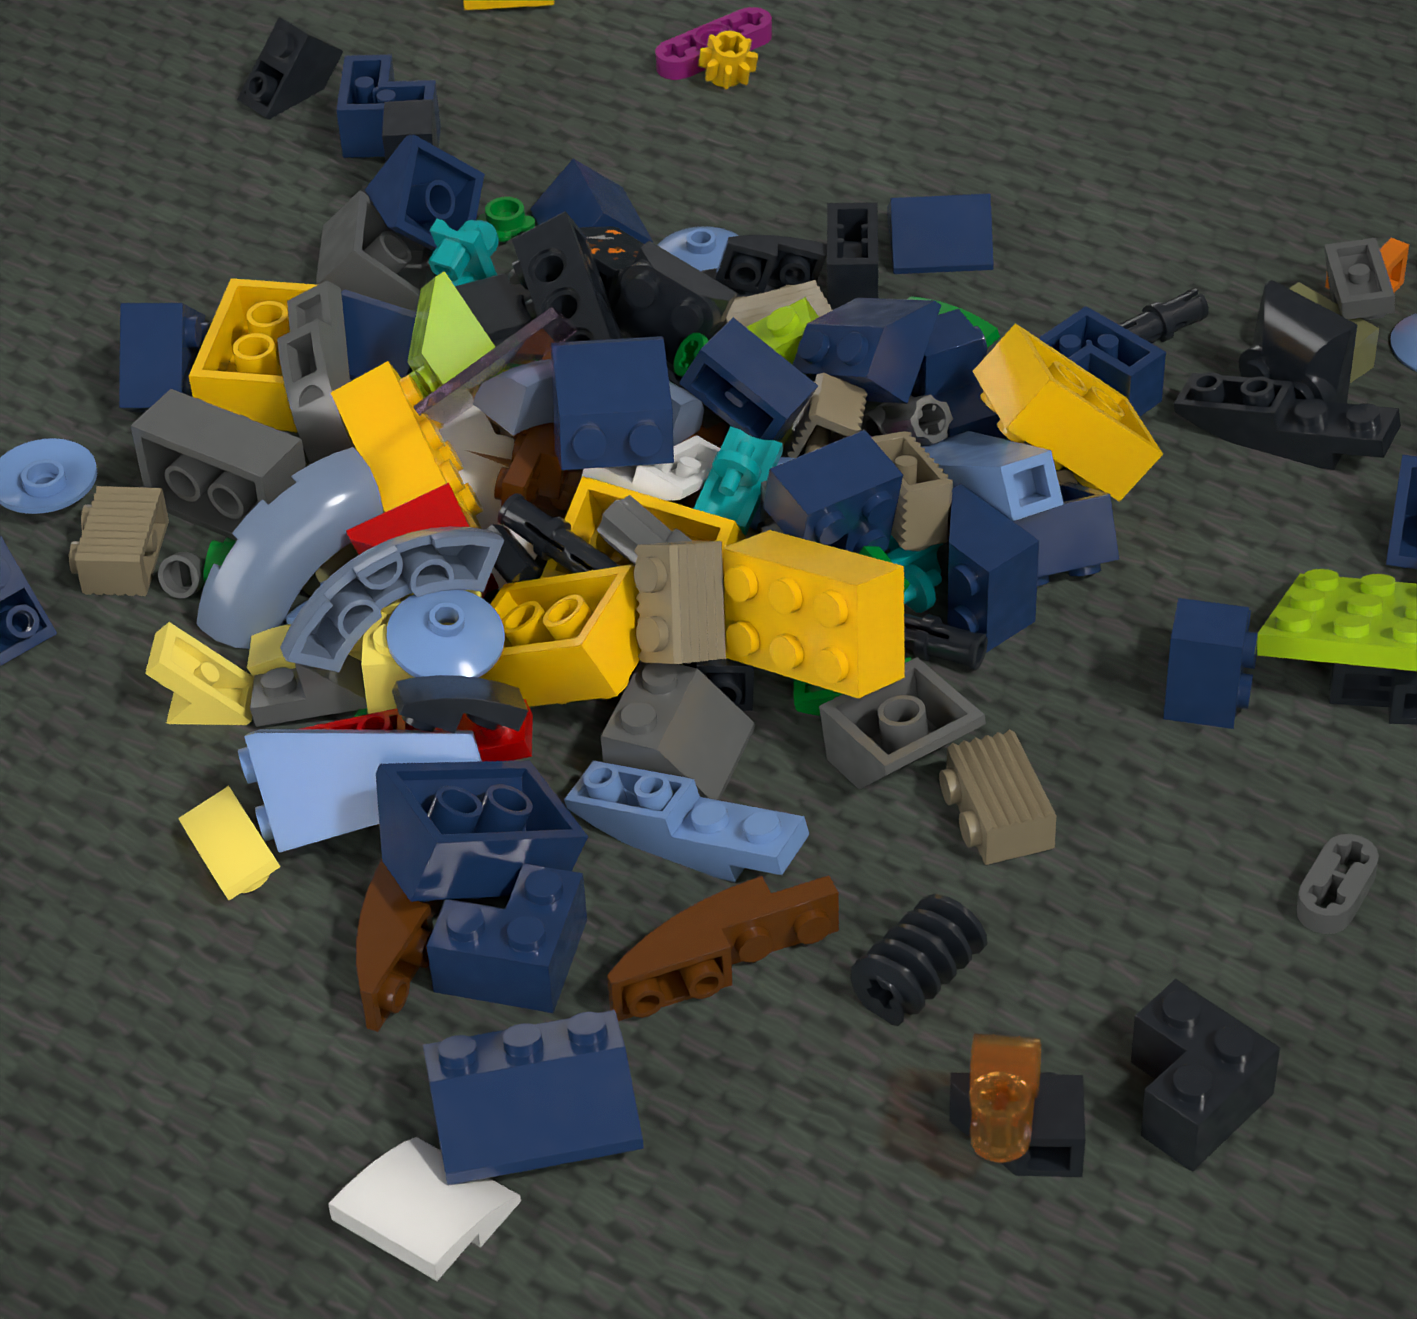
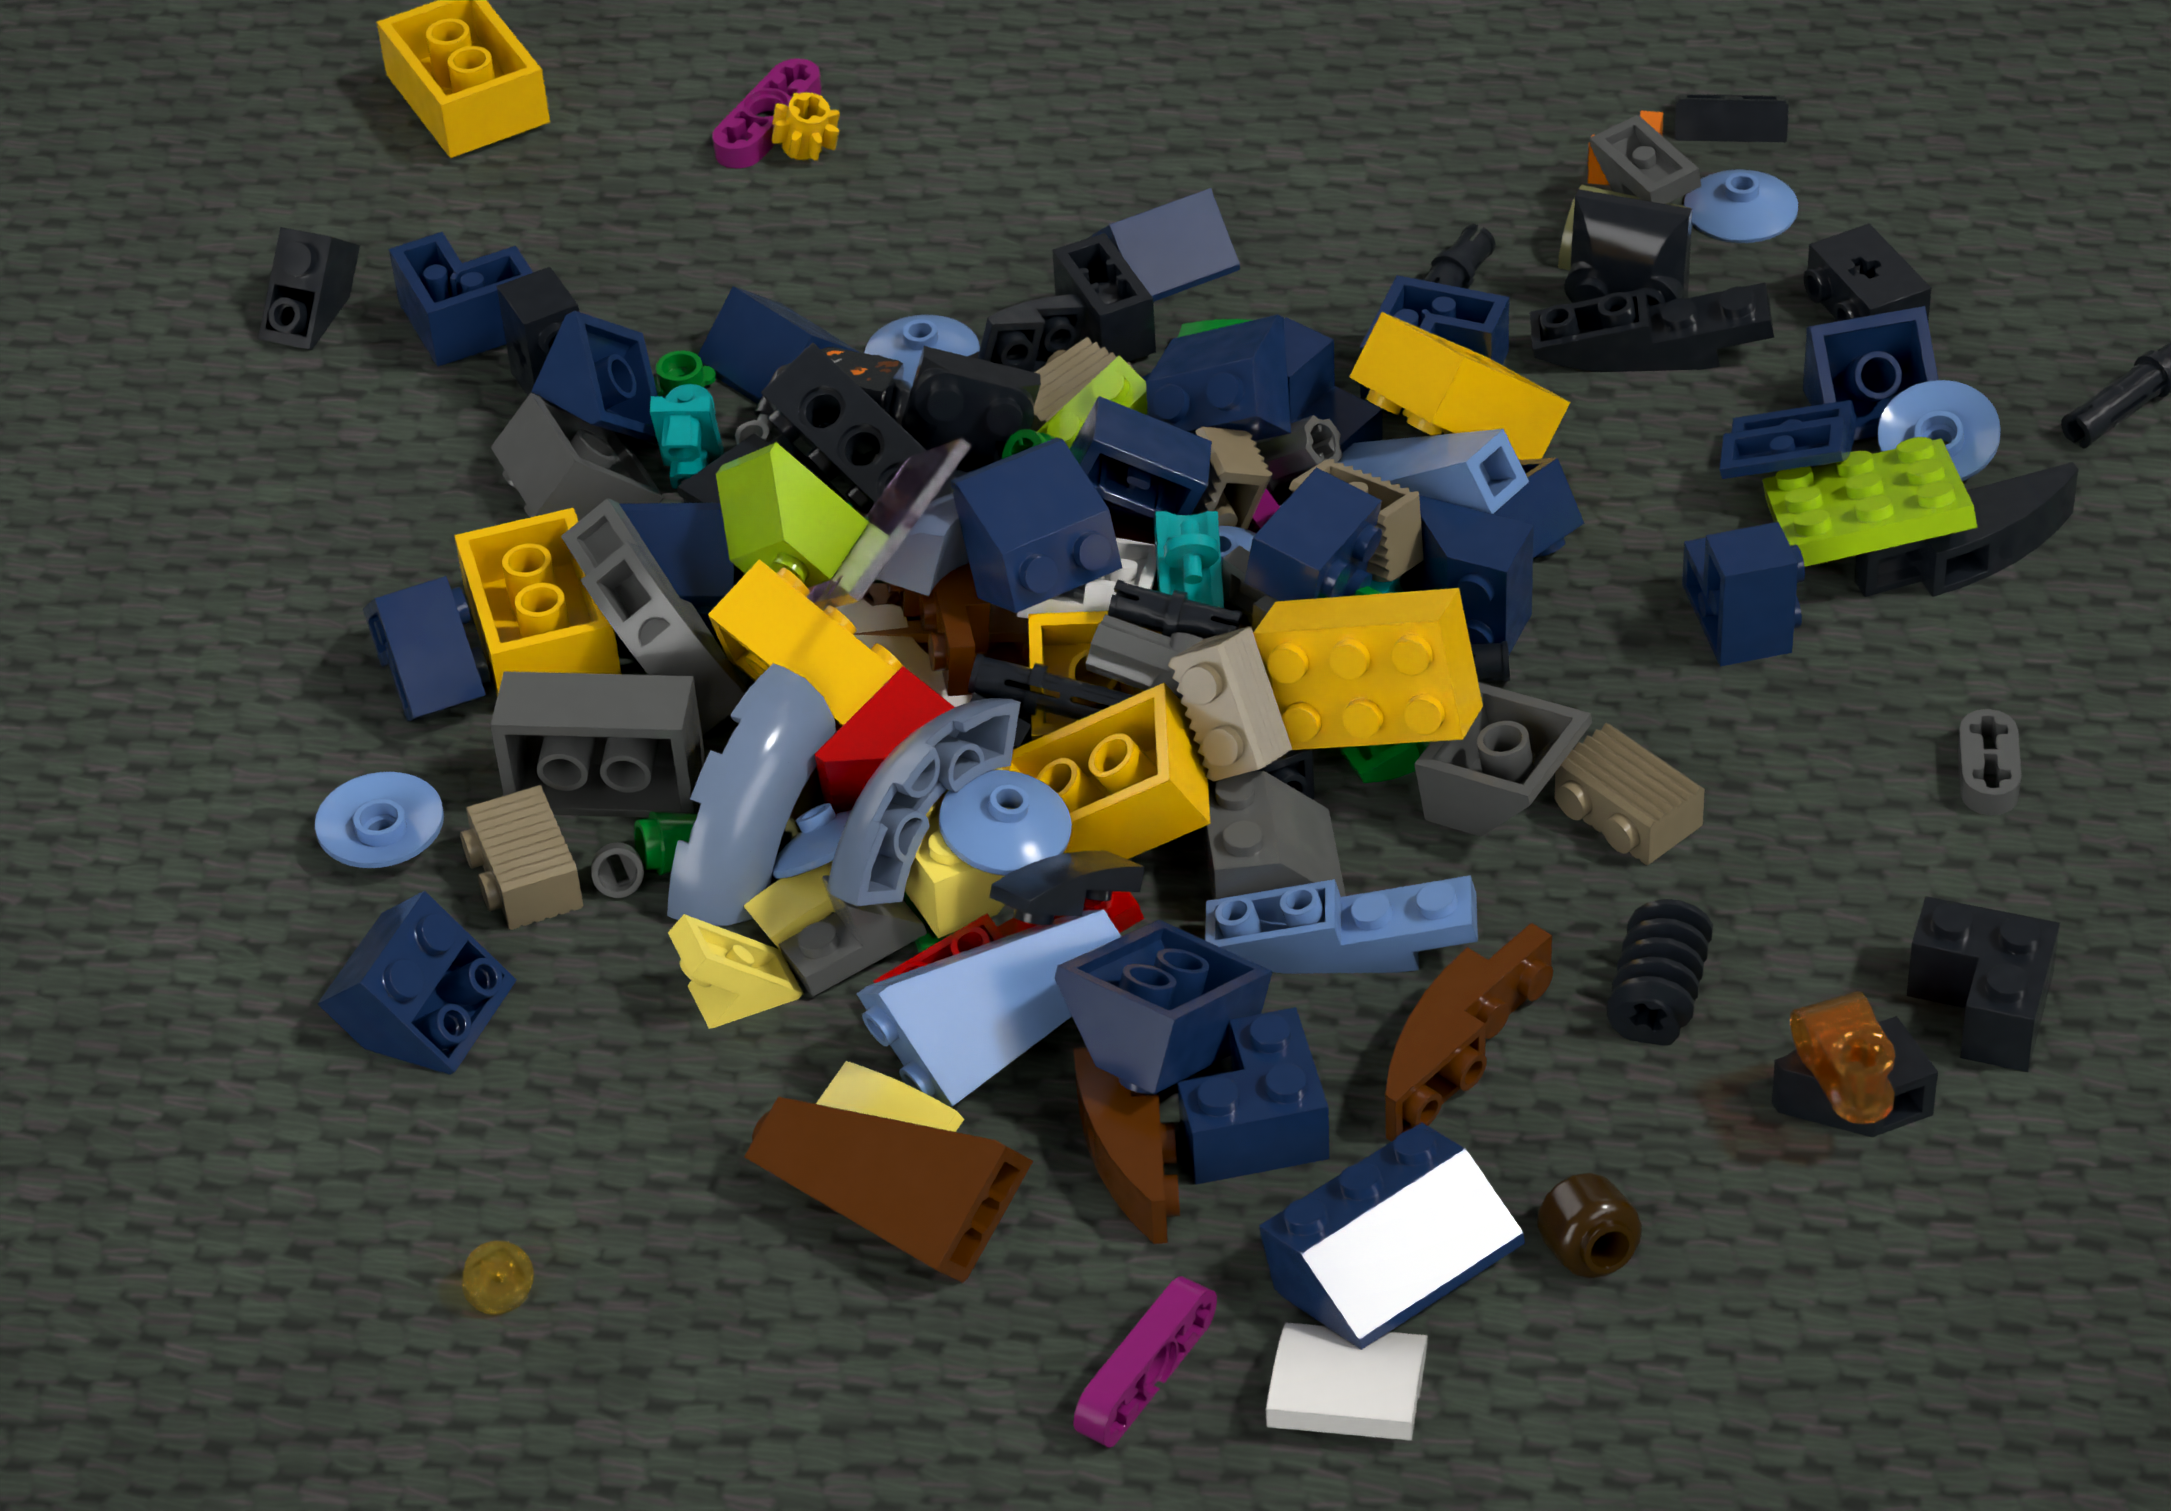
camera: 25 degrees left, 0 degrees up
(185, 898) = (902, 1180): none -> reddish brown slope
(240, 1136) = (1143, 1358): none -> magenta beam
(686, 511) = (1170, 612): none -> black pin
(707, 1155) = (1589, 1225): none -> dark brown head
(1336, 546) = (1788, 439): none -> dark blue slope

